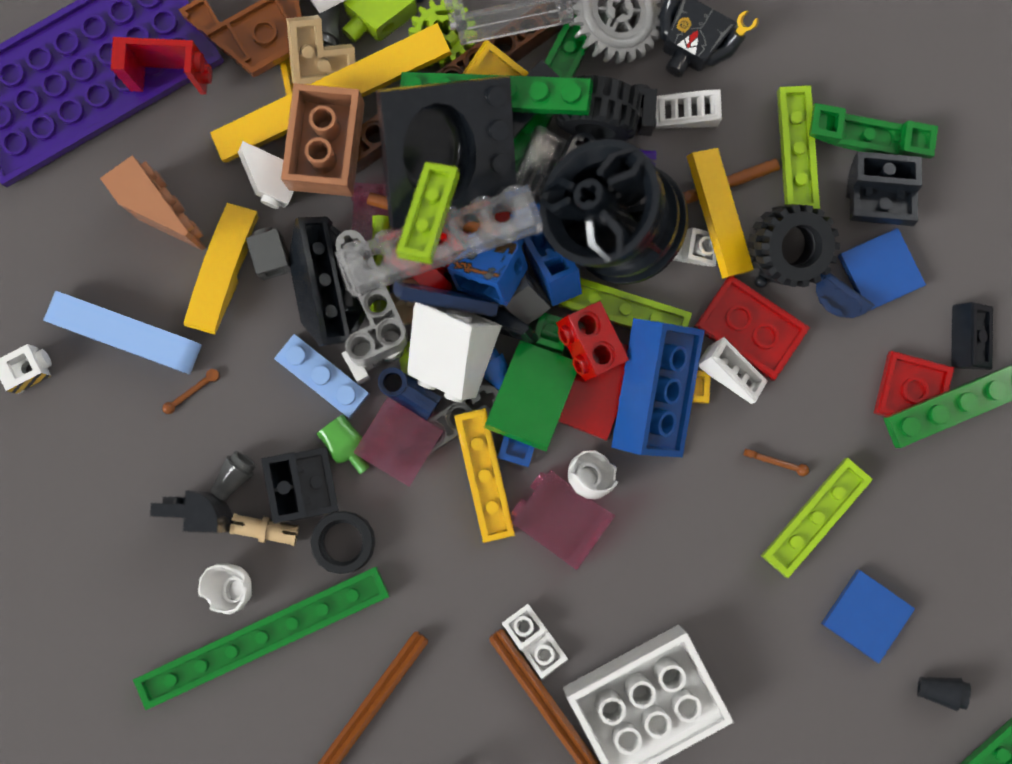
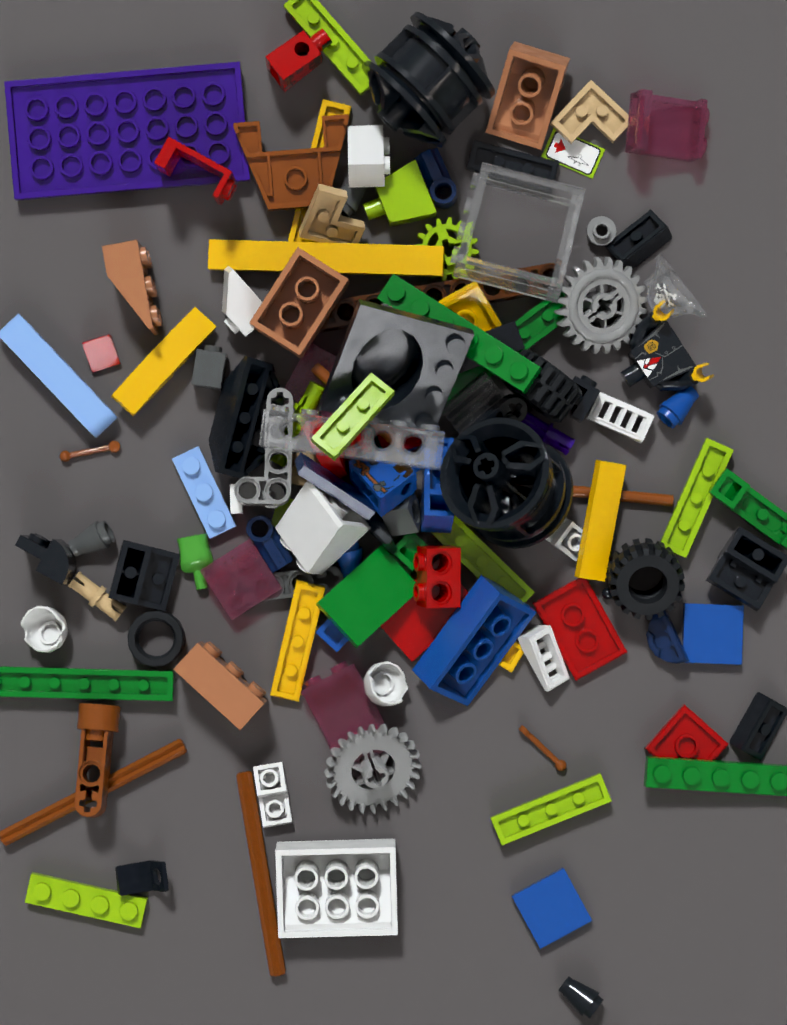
camera: 25 degrees right, 5 degrees up
(156, 290) = (101, 353): none -> slope
(324, 658) = (96, 724): none -> dark orange beam
(428, 554) = (221, 683): none -> nougat brick
(644, 567) = (390, 779): none -> light grey gear
(735, 76) = (675, 409): none -> blue cone

